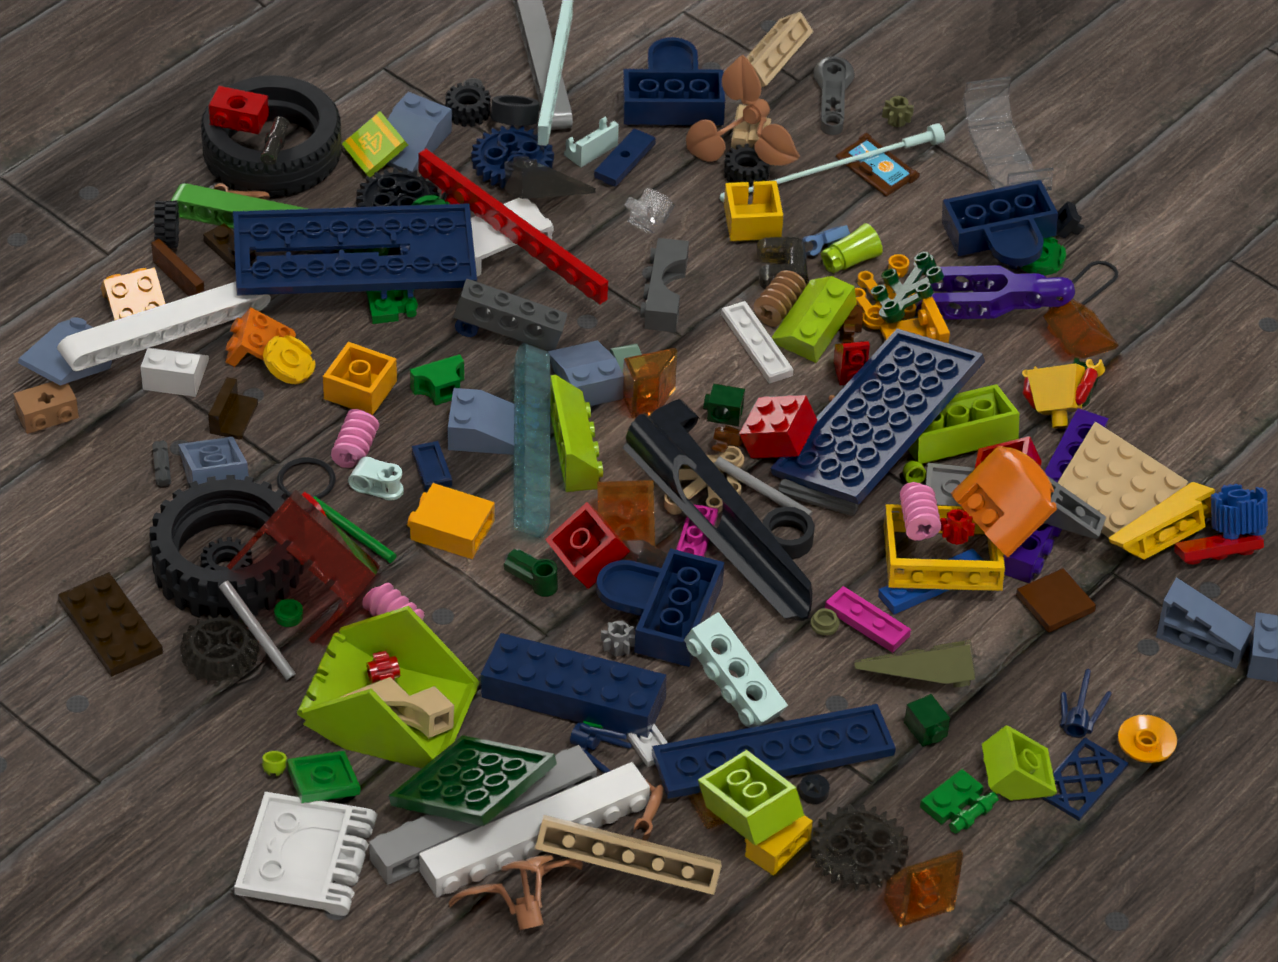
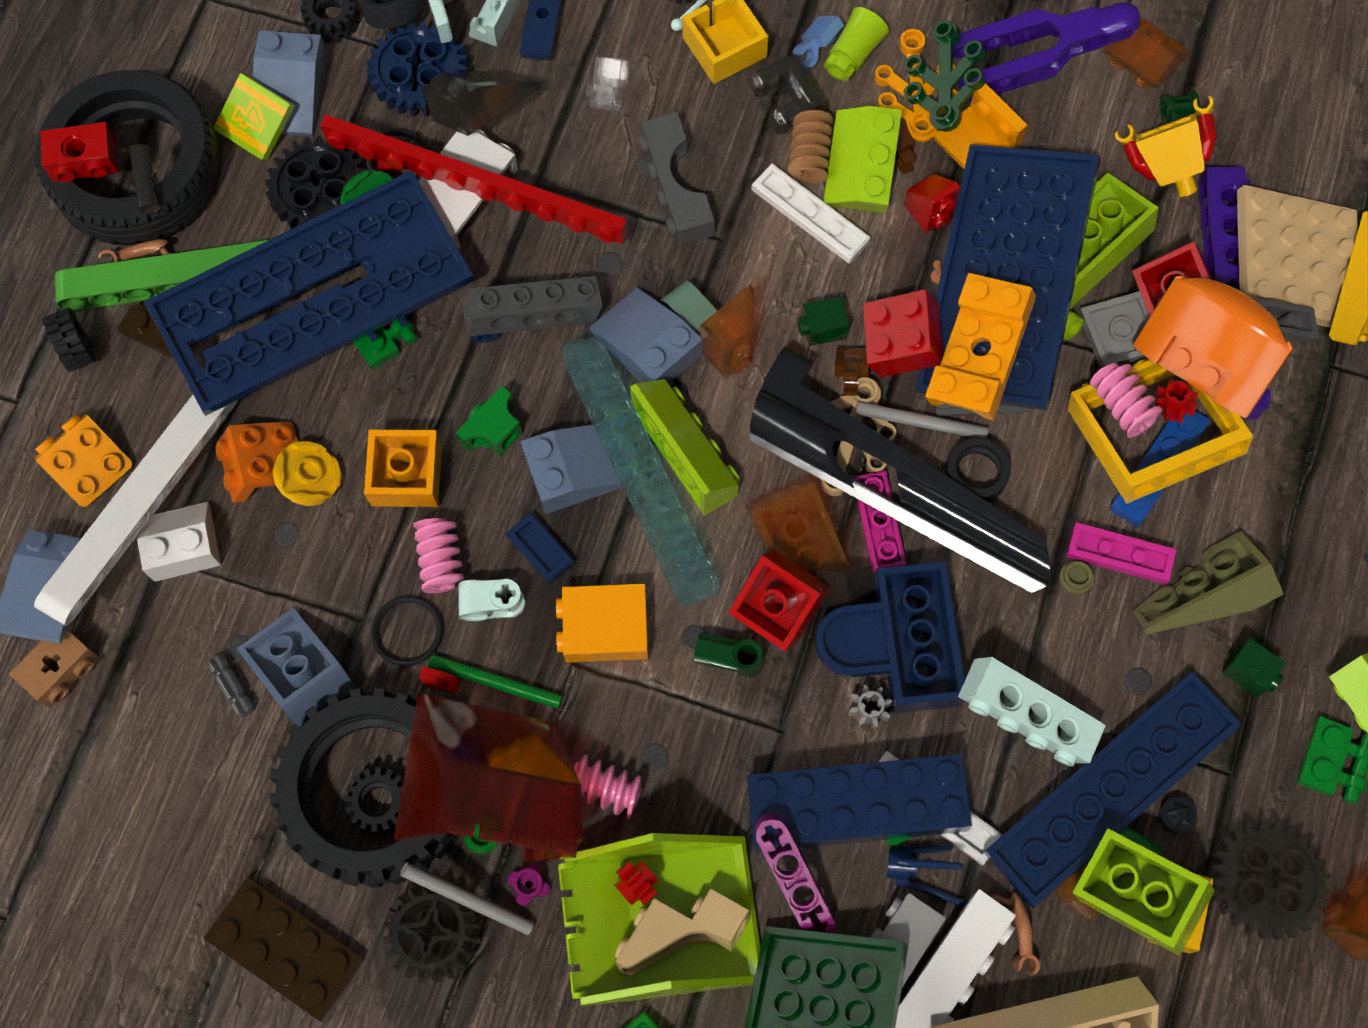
camera: 20 degrees left, 25 degrees up
(176, 269) = (114, 397): reddish brown tile -> none
(231, 411) = (276, 573): dark brown panel -> none
(305, 650) = (519, 879): none -> magenta plate
(504, 703) = (792, 879): none -> magenta beam
(849, 431) = (990, 313): none -> light orange piece
(1055, 600) = (1299, 433): reddish brown tile -> none

